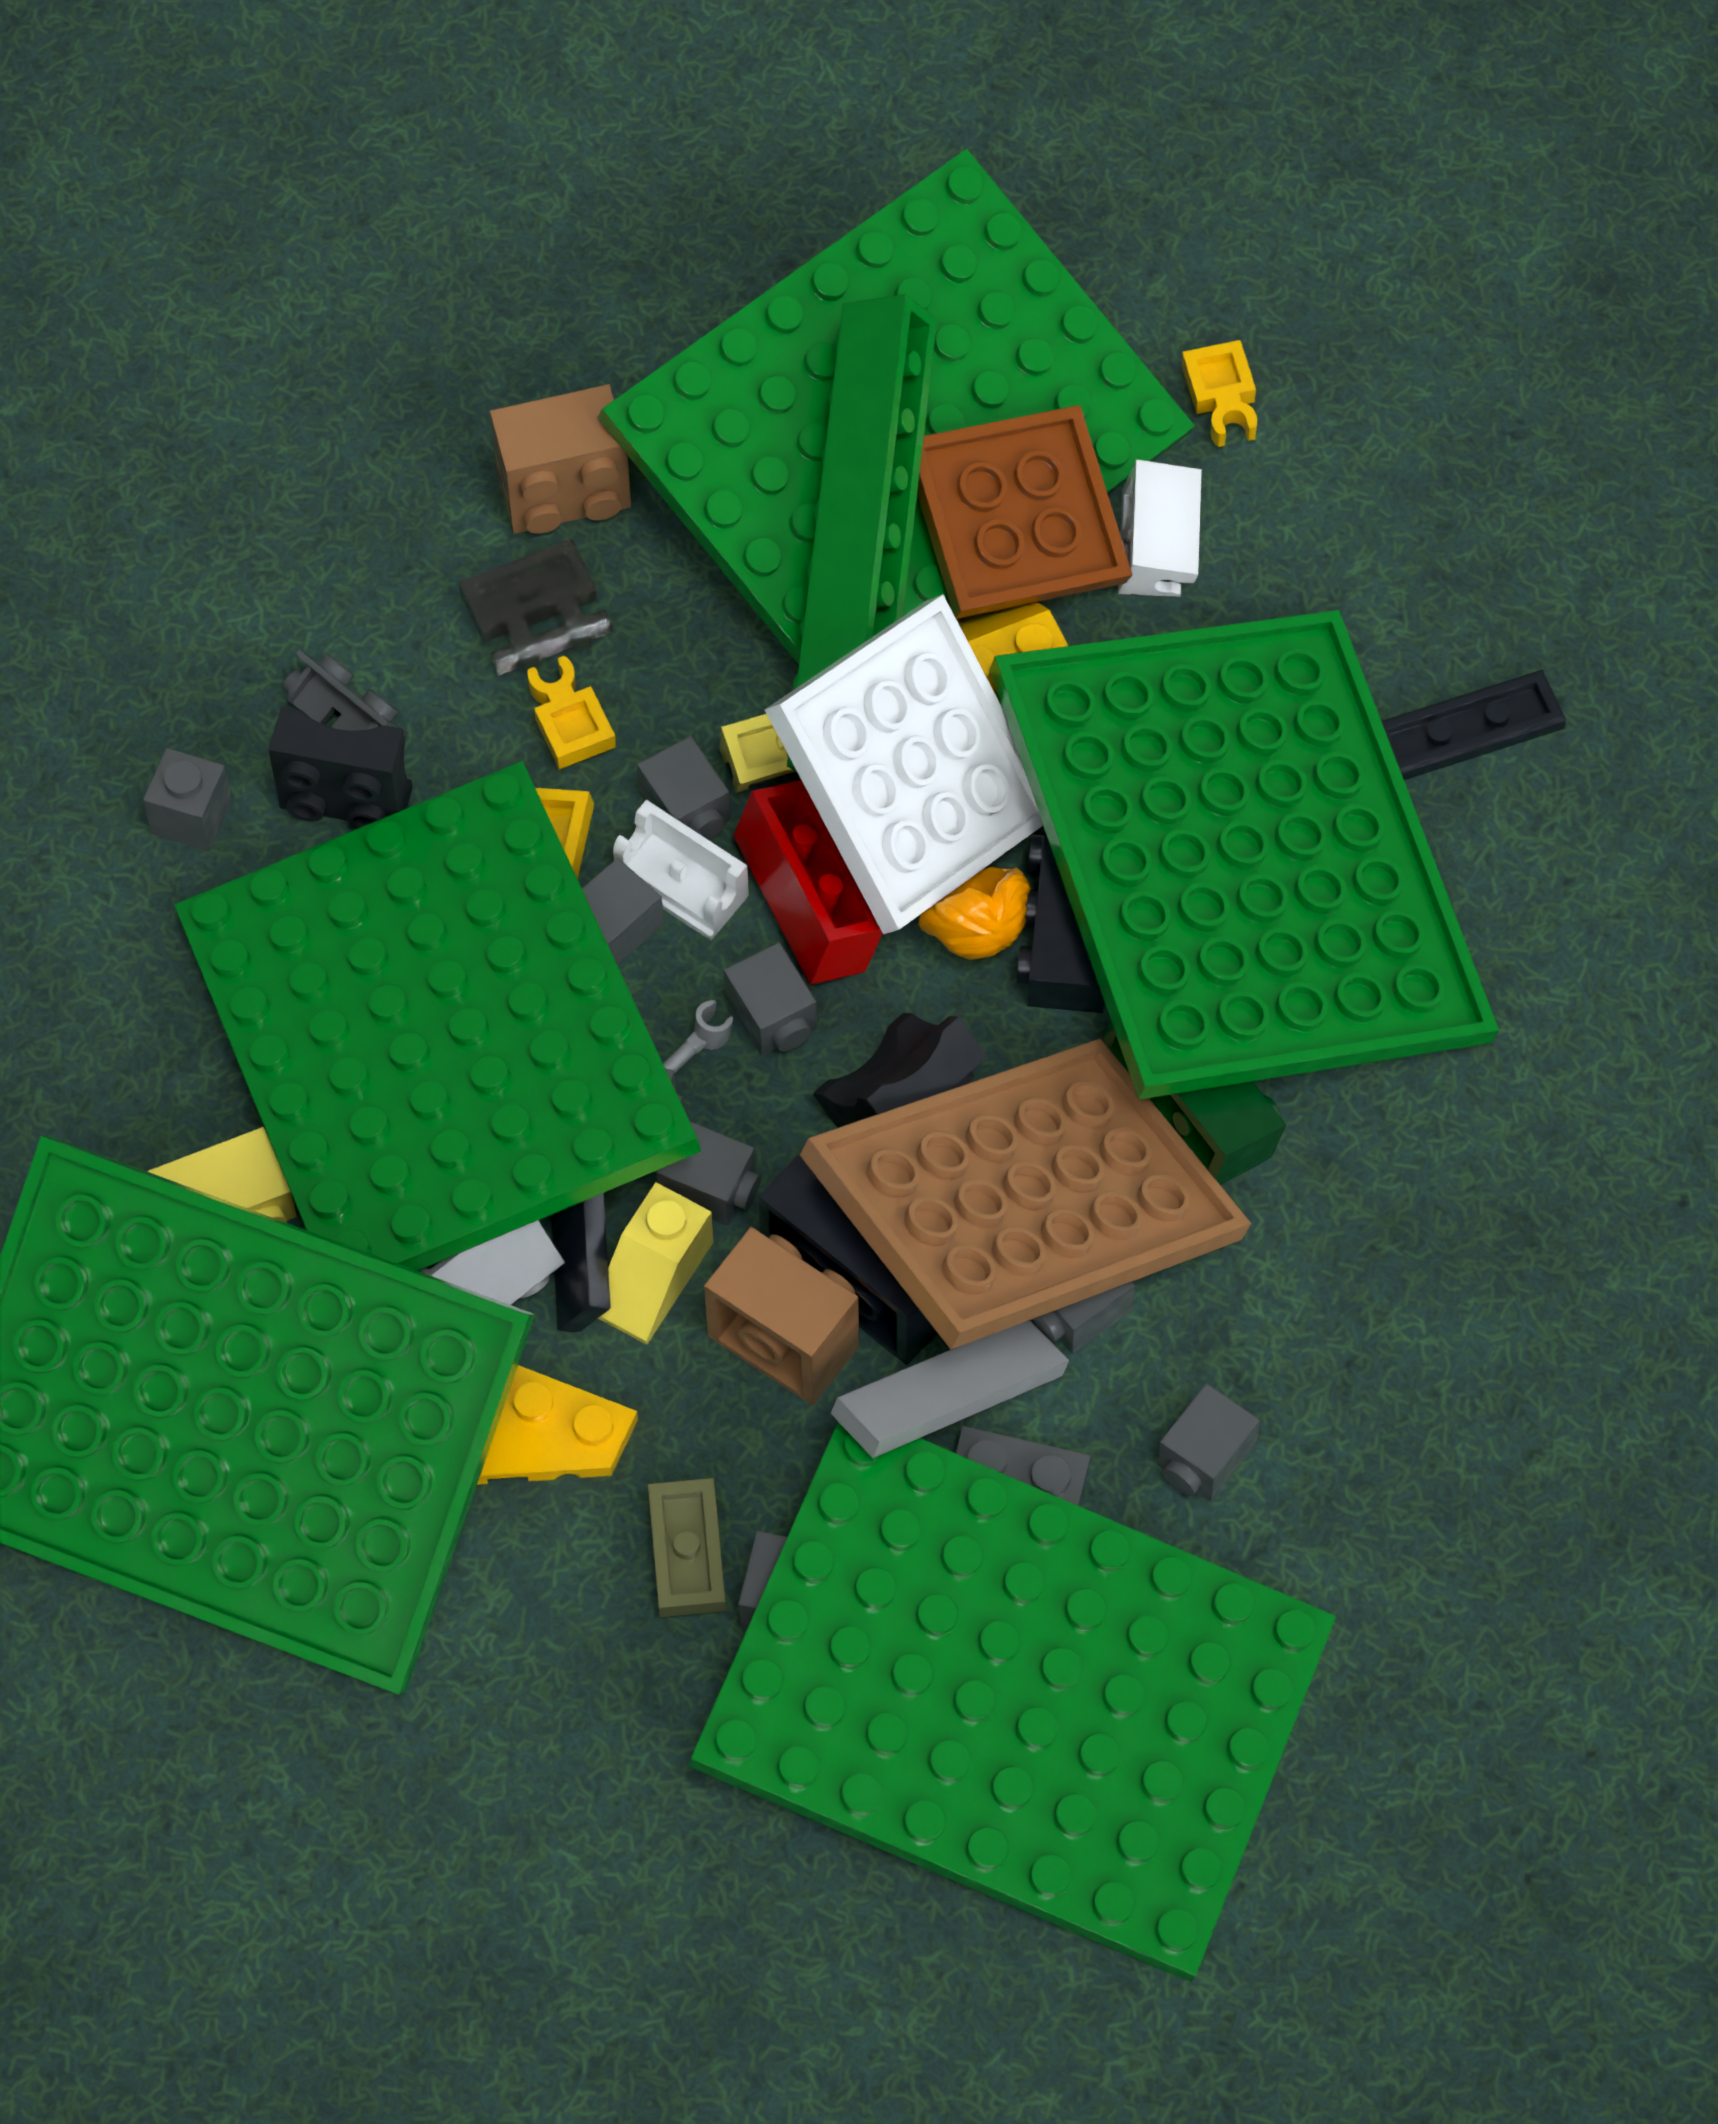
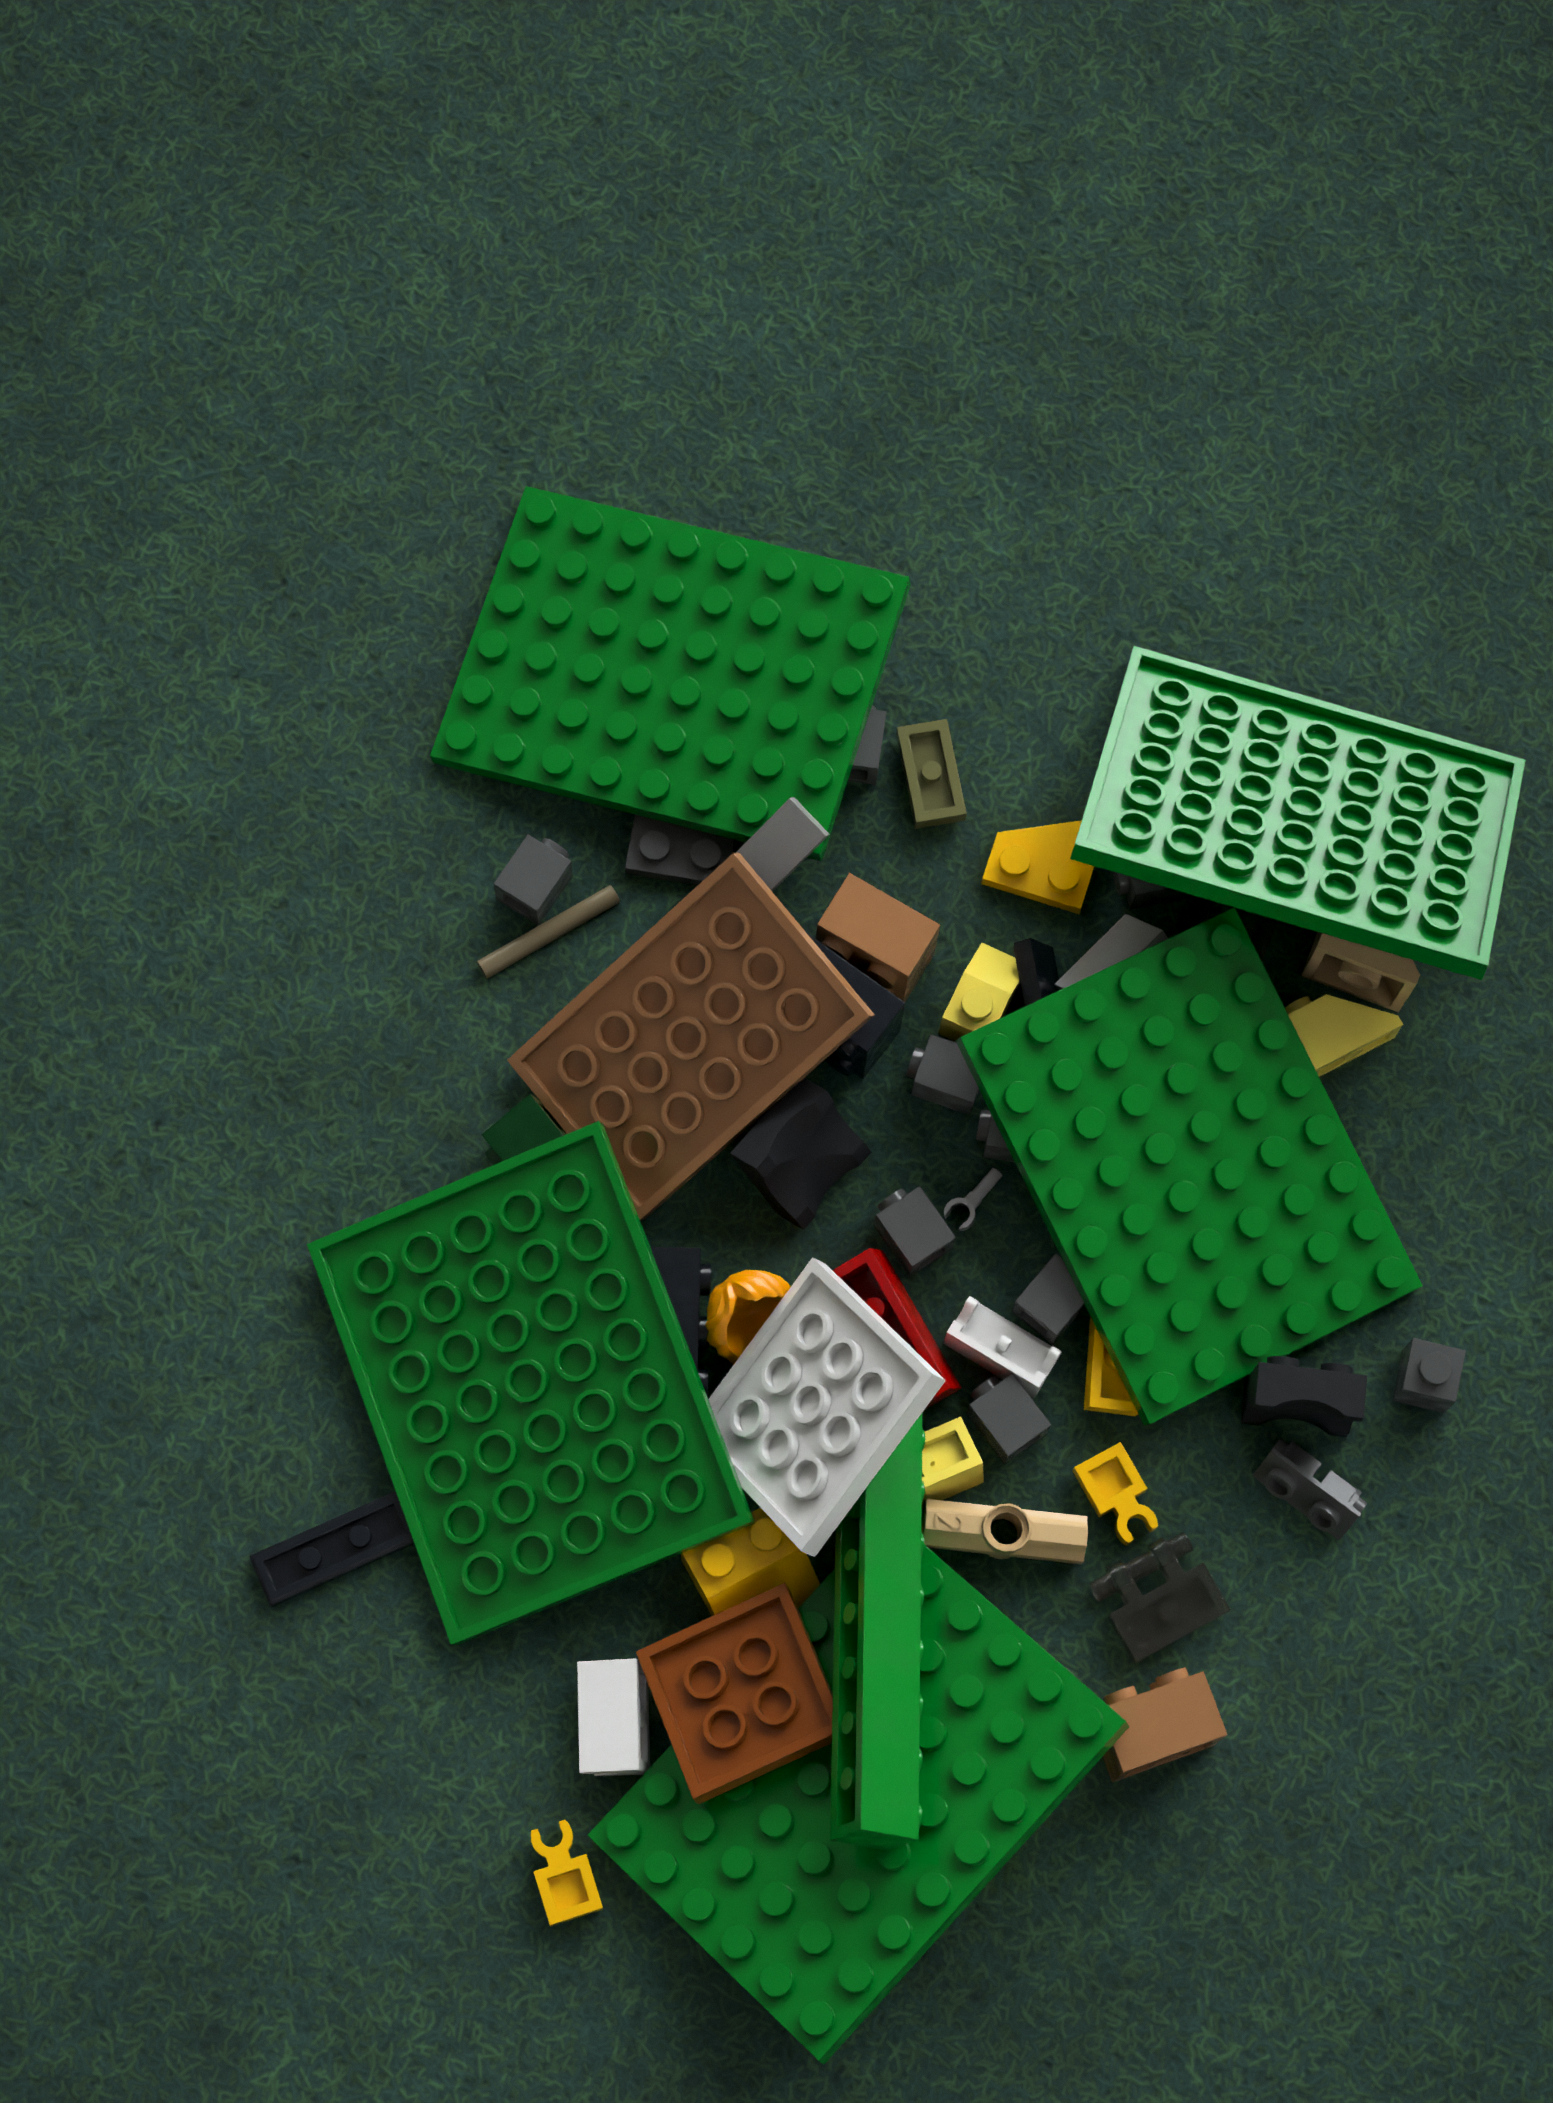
camera: 170 degrees right, 10 degrees up
(668, 676) = (1039, 1533): none -> tan piece
(1180, 1396) = (548, 931): none -> dark tan bar

